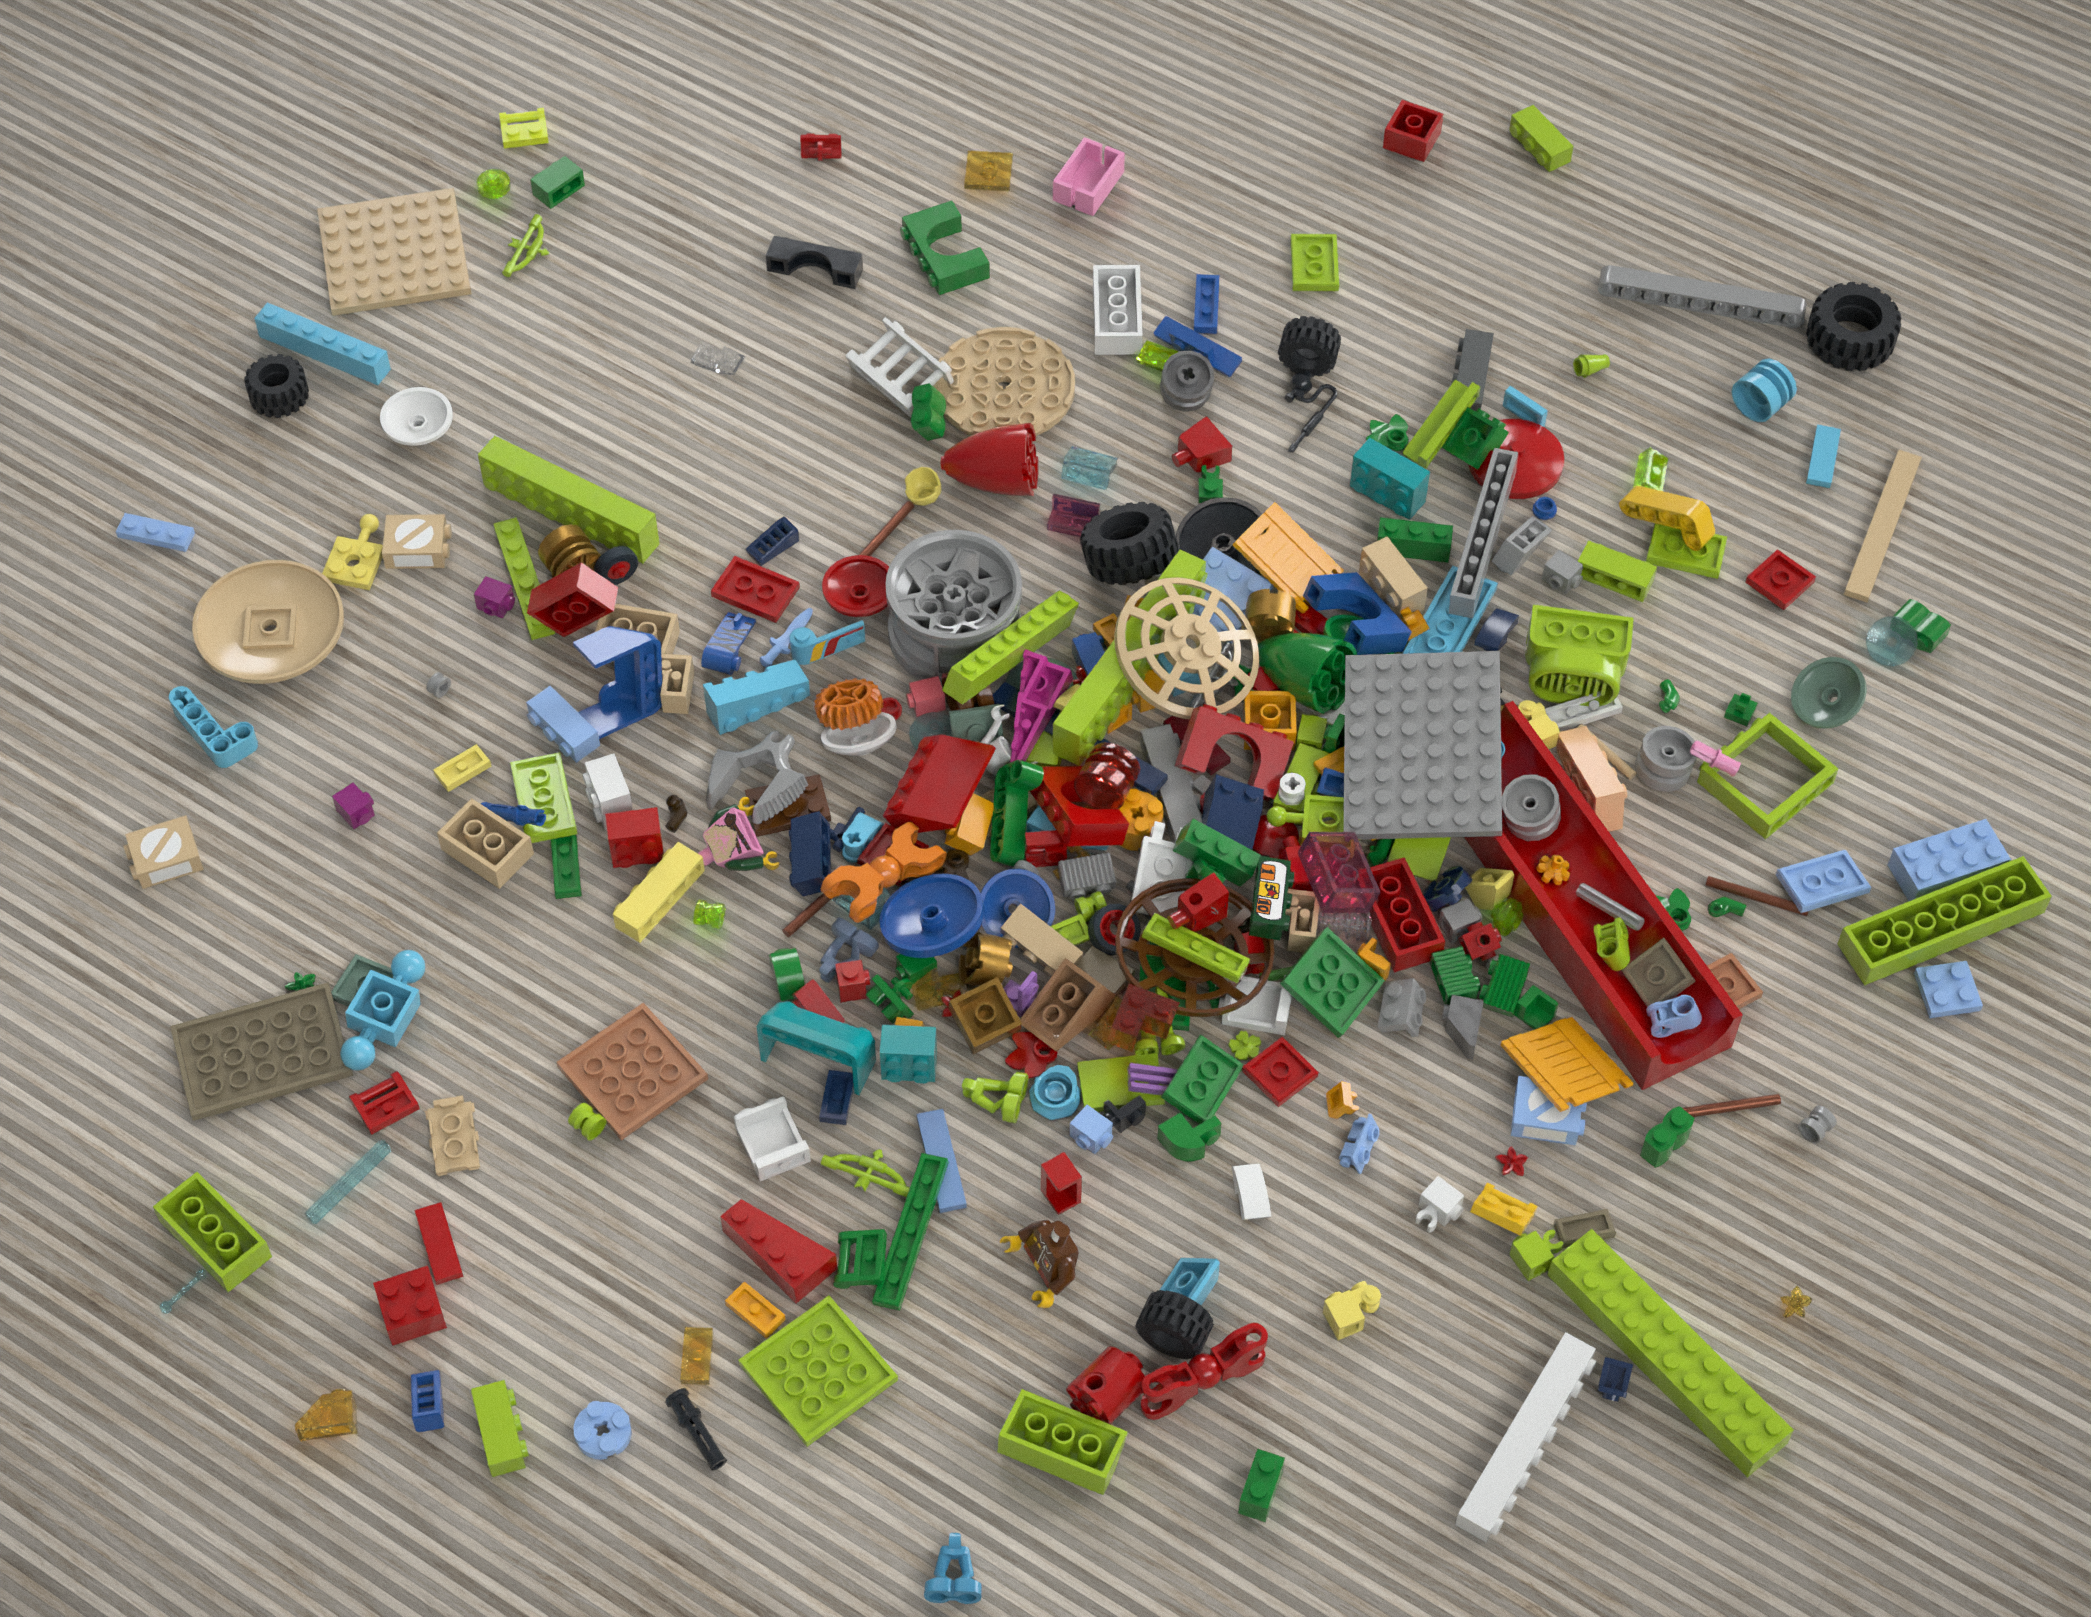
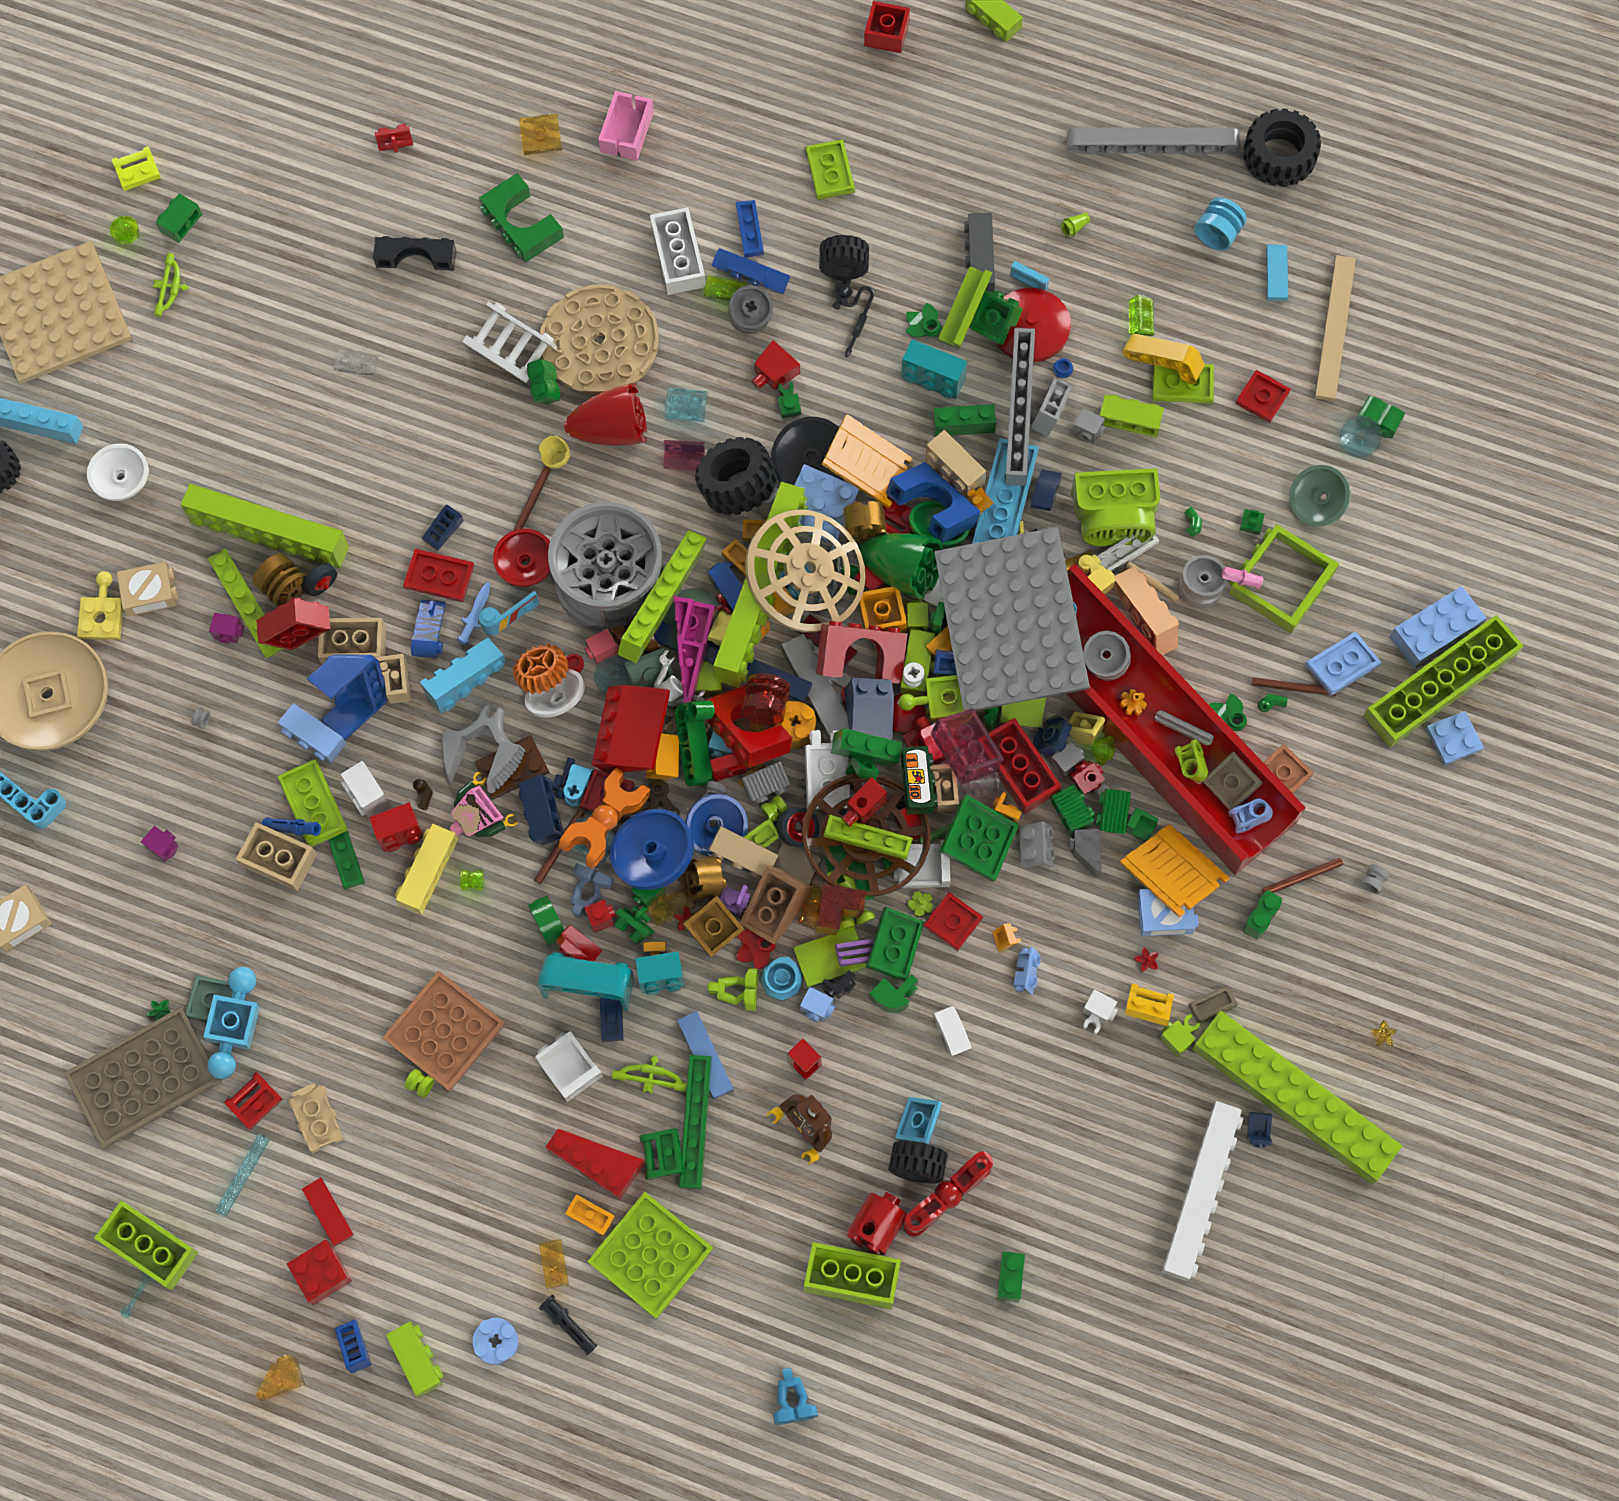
camera: 10 degrees left, 15 degrees up
(462, 768) = (239, 790): light yellow plate -> none
(1344, 1308) = (1043, 1116): light yellow brick -> none

